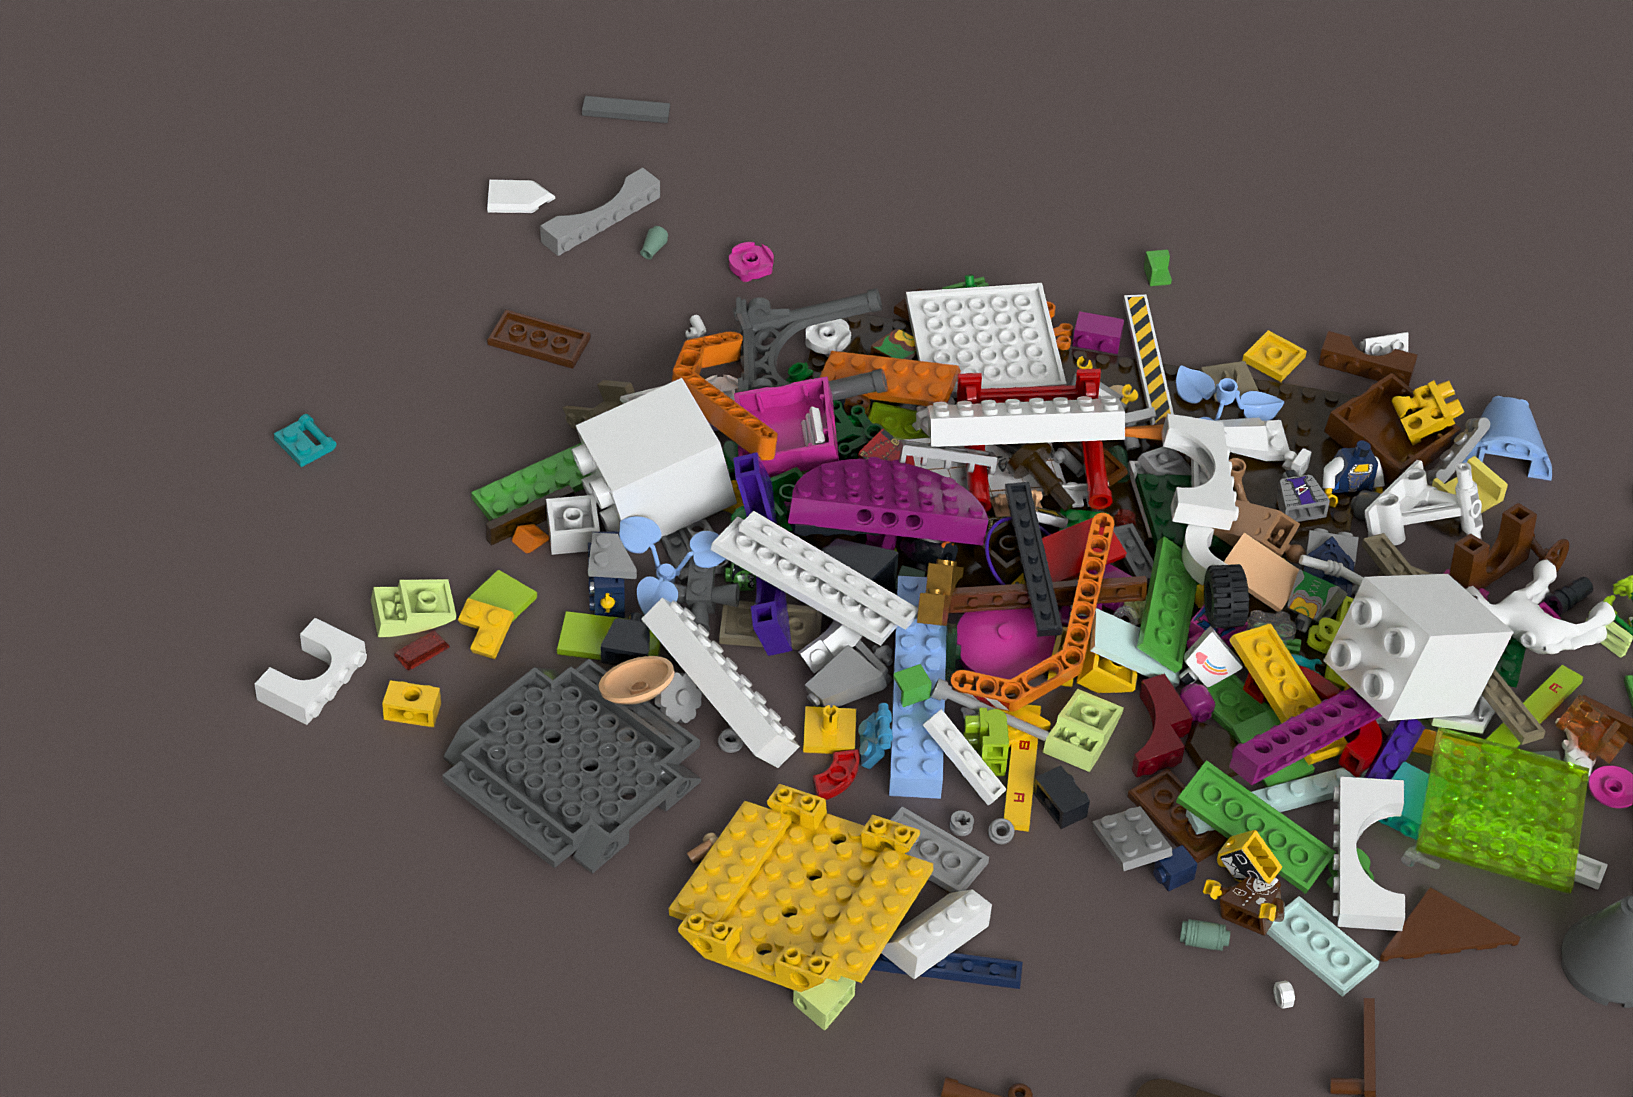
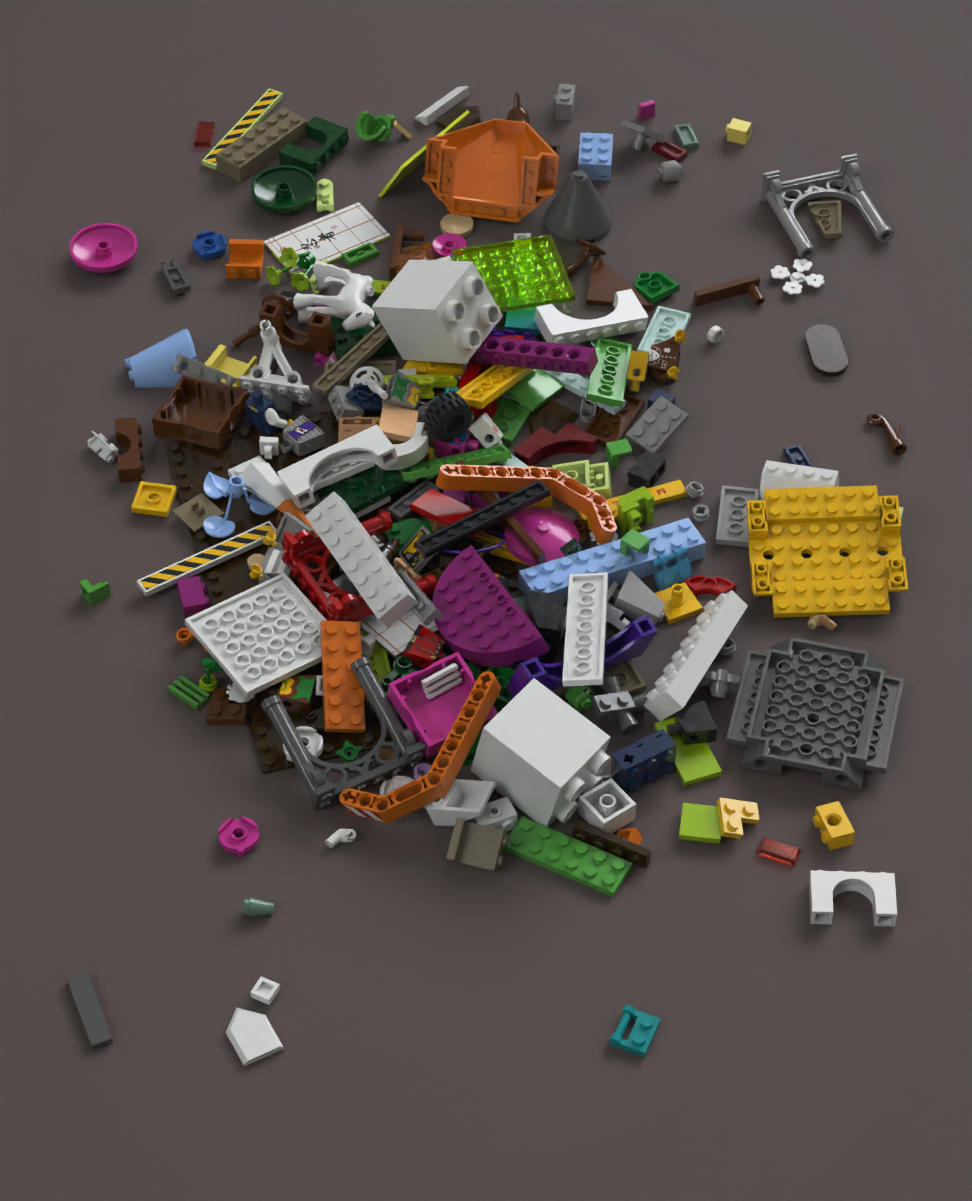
camera: 115 degrees left, 0 degrees up
(412, 607) = (749, 871): yellowish green slope -> none
(539, 339) = (416, 935): reddish brown tile -> none
(552, 211) = (265, 990): none -> white plate
(568, 231) = (205, 946): light grey arch -> none
(610, 558) = (645, 745): light grey wing -> none
(636, 680) = (738, 672): light nougat dish -> none
(640, 534) = (642, 719): light blue plant -> none
(829, 570) = (575, 614): white plate -> none
(939, 590) = (538, 554): pearl gold arch -> none
(944, 691) = (623, 529): light grey piece -> none
(964, 757) = (661, 514): white plate -> none
(1111, 779) = (616, 449): none -> bright green panel
(1198, 701) = (520, 432): magenta head -> none
(1204, 934) = (700, 377): sand green head -> none
(1423, 977) = (655, 285): none -> green plate
(1434, 411) = (182, 388): yellow hips -> none
(1527, 928) = (589, 250): none -> reddish brown dish

